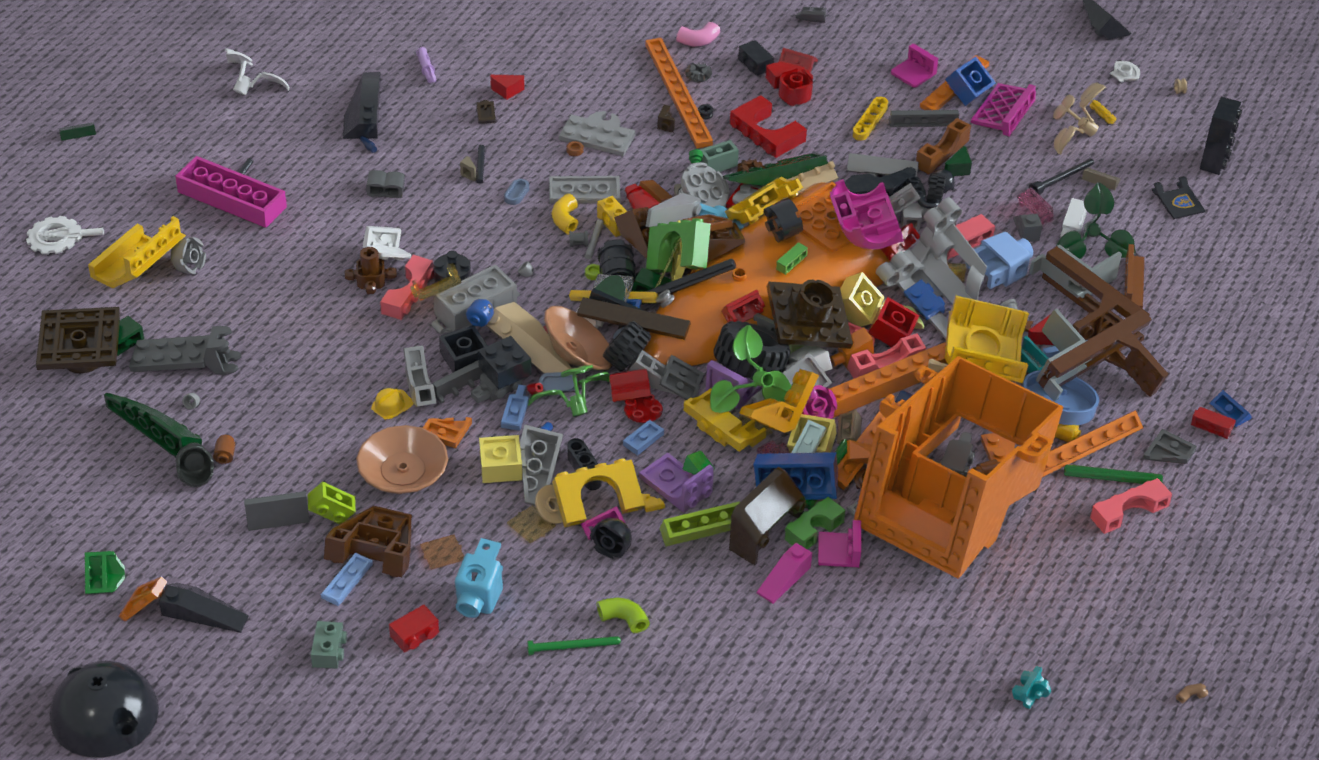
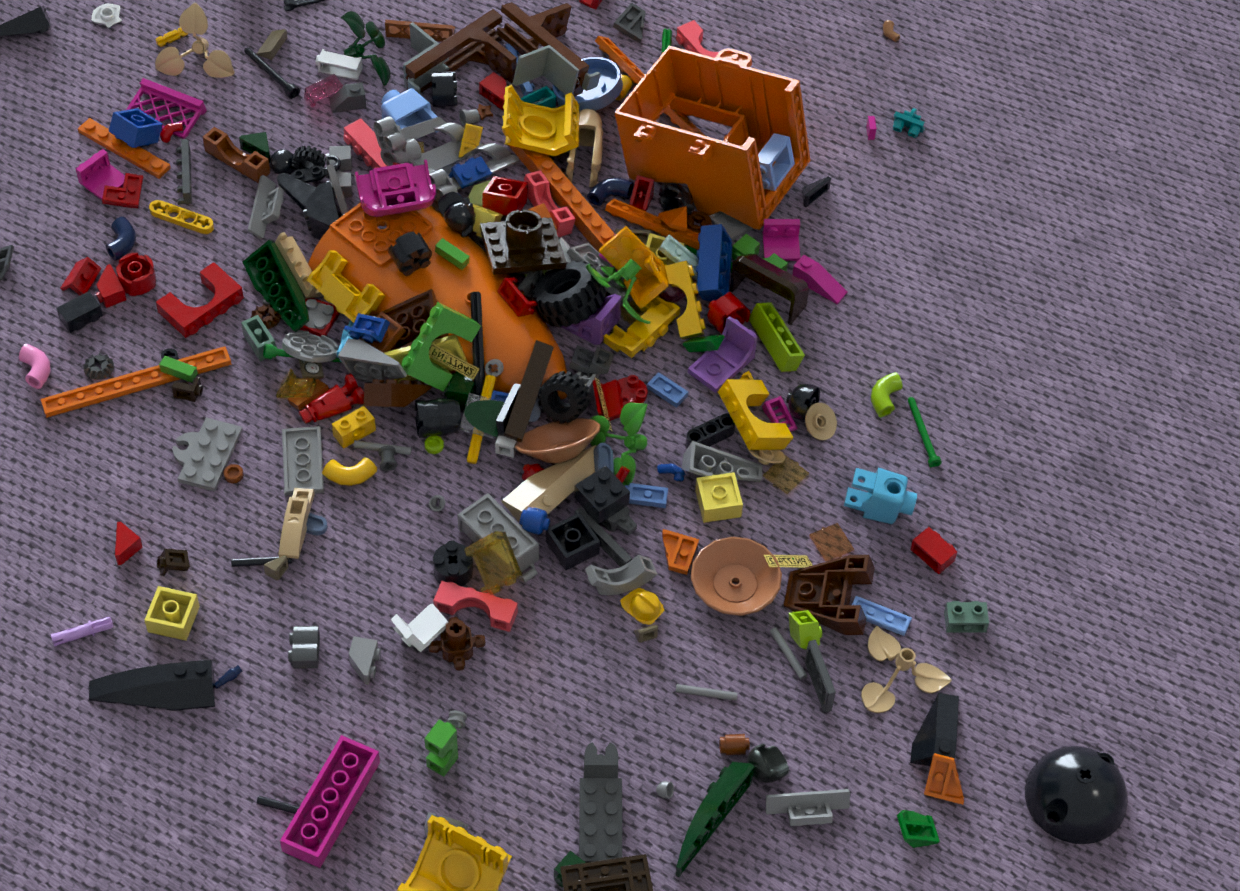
camera: 95 degrees left, 10 degrees up
(142, 496) = (808, 807): none -> light grey bracket
(243, 82) = (118, 822): white plant -> none
(257, 237) = (443, 747): none -> bright green arch
(266, 609) = (884, 646): none -> tan plant
(287, 440) = (706, 692): none -> light grey bar
(294, 271) = (457, 718): none -> light grey bush
(360, 400) = (646, 633): none -> dark tan slope
(365, 215) = (363, 656): none -> light grey slope
(417, 506) = (798, 561): none -> clear yellow sticker
(430, 107) = (172, 613): none -> light yellow brick
(511, 173) = (295, 522): none -> tan slope
(581, 549) = (826, 421): none -> tan dish
(620, 378) = (603, 402): none -> clear yellow sticker
(663, 179) = (295, 387): none -> clear yellow slope
(684, 108) = (178, 369): none -> bright green piece
(705, 207) = (368, 328): none -> blue bracket
(732, 483) = (723, 308): none -> red brick
(765, 436) = (689, 322): none -> yellow arch
(840, 83) = (124, 241): none -> dark blue cylinder
(847, 268) = (457, 212): none -> black hair
(895, 86) = (128, 195): none -> red tile
(918, 585) = (815, 190): none -> black slope
(932, 503) = (776, 150): none -> light blue window
(972, 293) = (470, 139): none -> yellow slope
(975, 107) = (168, 131): none -> red arm
(1020, 648) = (871, 127): none -> dark pink tile
(1041, 285) = (444, 88): none -> black brick

